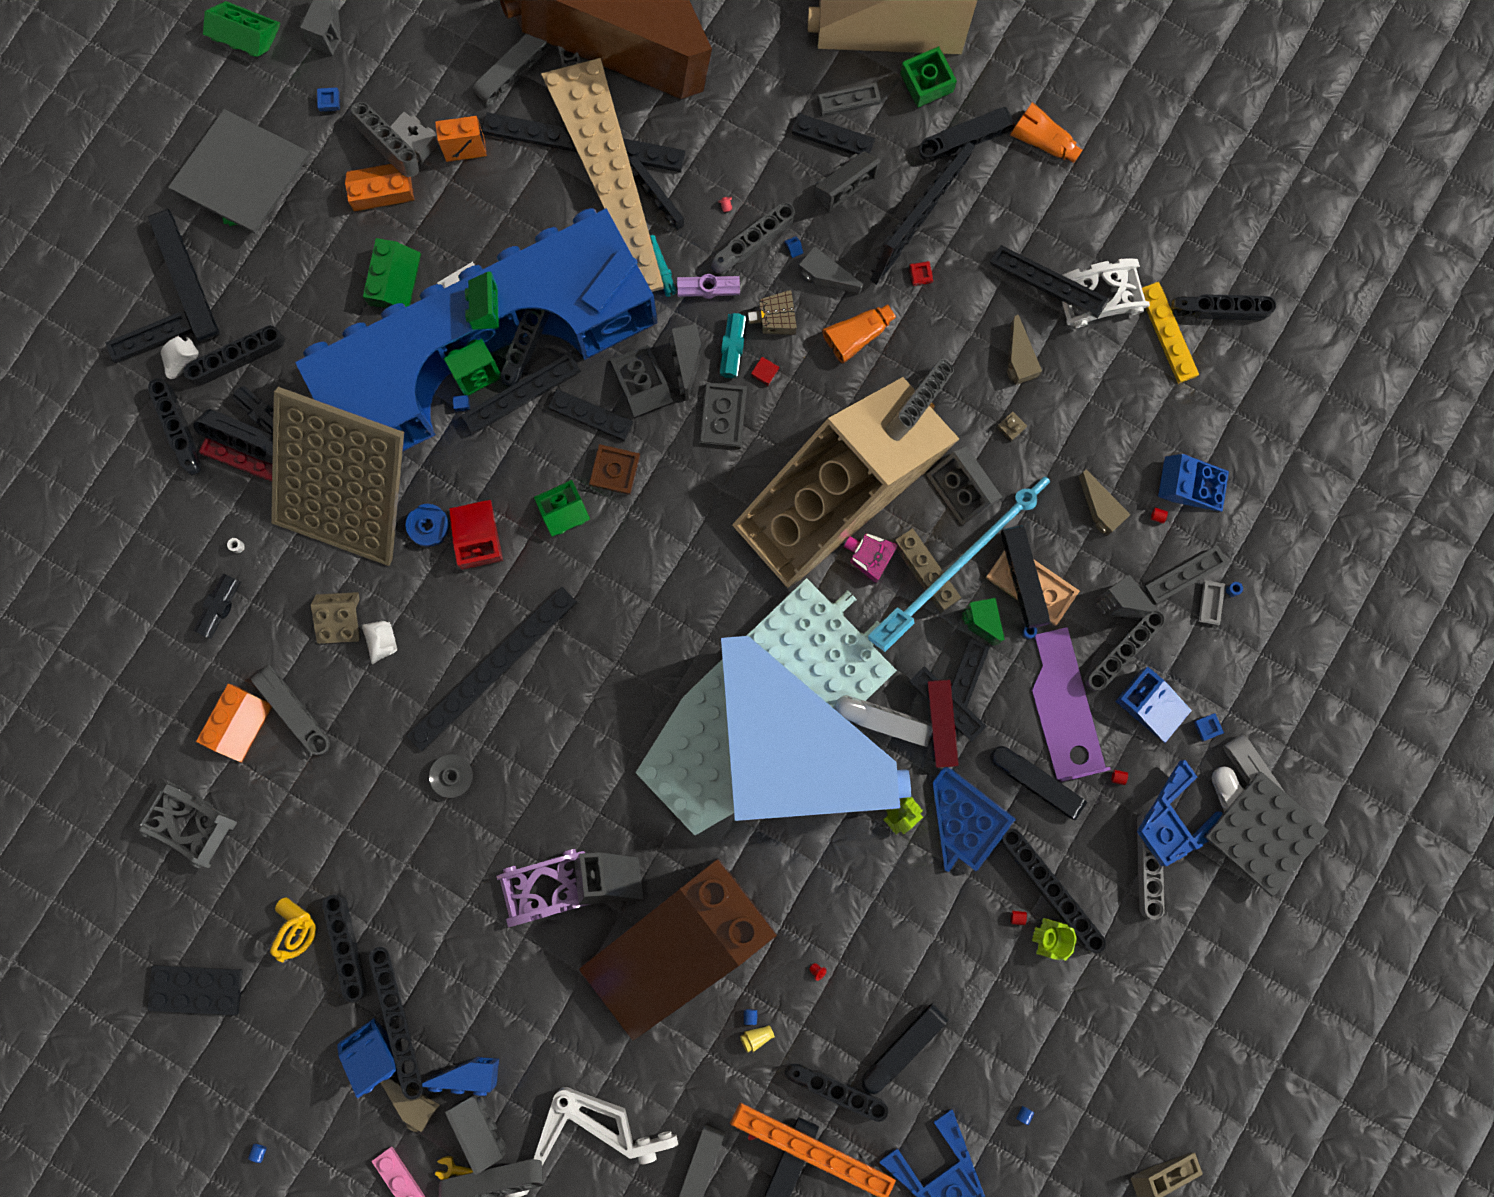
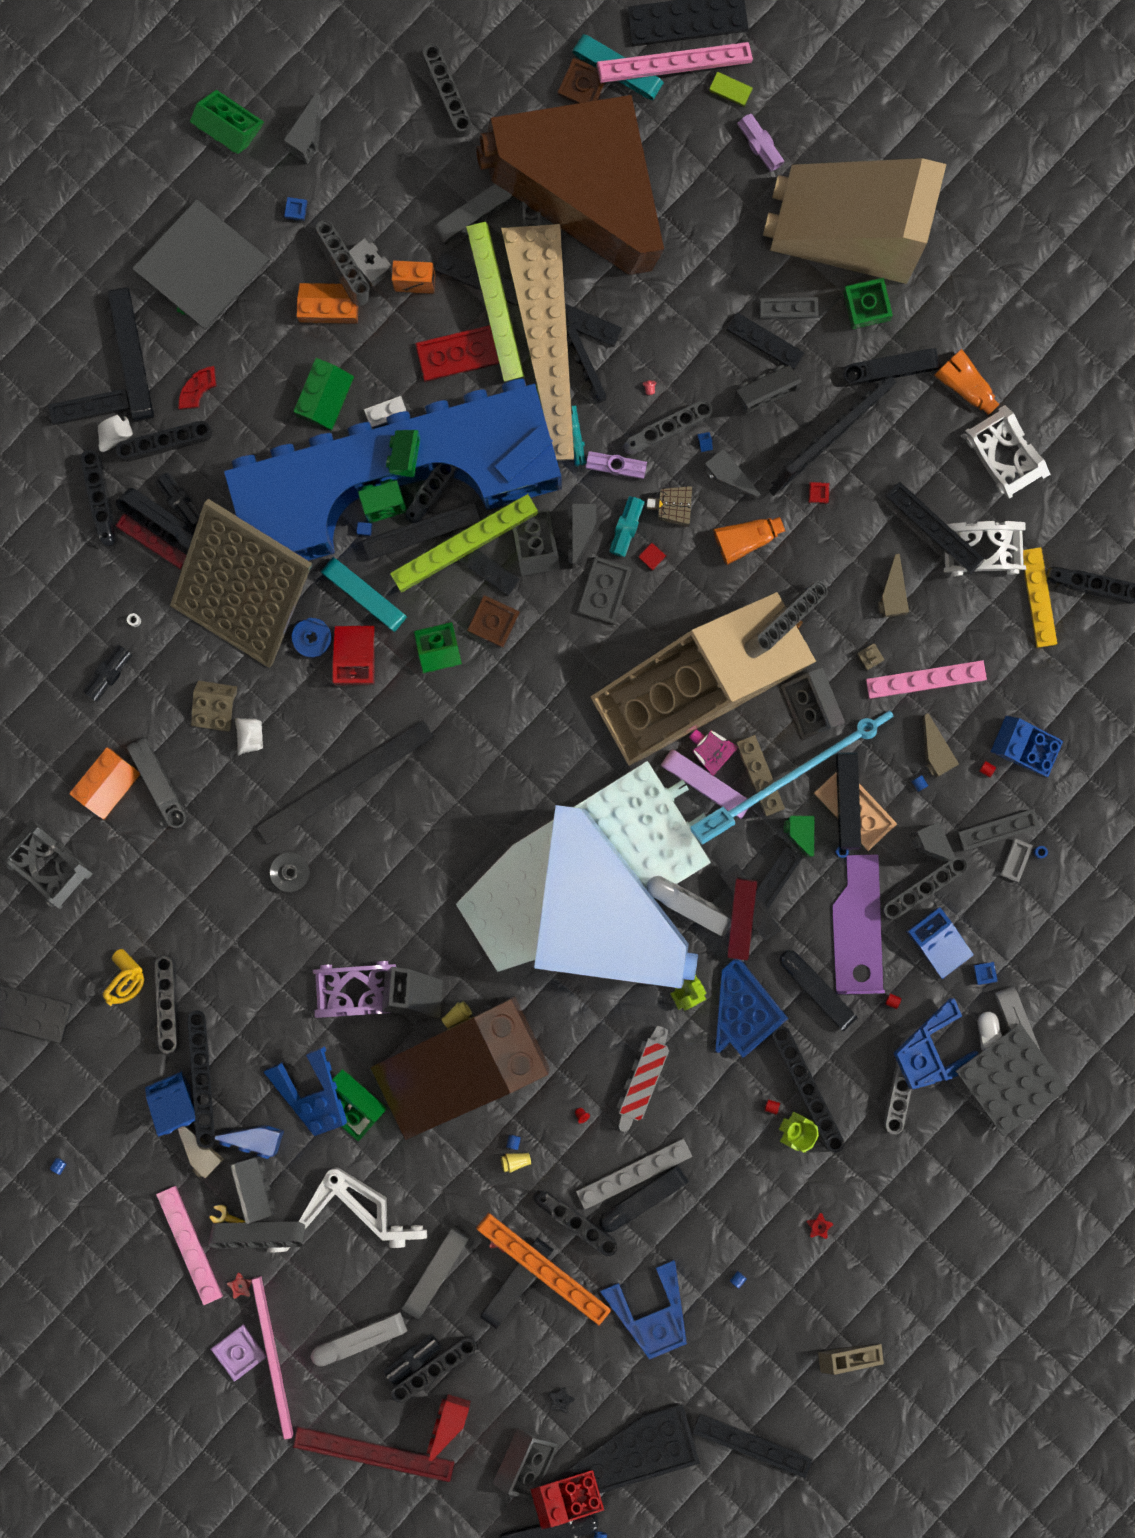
camera: 20 degrees right, 5 degrees up
(258, 297) = (196, 387): none -> red tile
(473, 469) = (363, 594): none -> teal beam
(523, 209) = (457, 353): none -> red tile
(532, 1028) = (318, 1110): none -> blue wing
(547, 141) = (495, 301): none -> lime brick
(565, 1015) = (358, 1104): none -> green slope
(567, 394) = (464, 543): none -> lime brick
(662, 890) = (457, 1014): none -> light yellow cone
(868, 588) = (703, 781): none -> lavender beam
(876, 917) = (644, 1079): none -> light grey hinge
(887, 1023) = (634, 1173): none -> light grey plate
(1074, 438) = (926, 679): none -> bright pink plate
(1093, 544) = (919, 783): none -> blue piece
(1100, 167) = (1007, 426): none -> white fence
(1104, 1037) = (823, 1230): none -> red plate

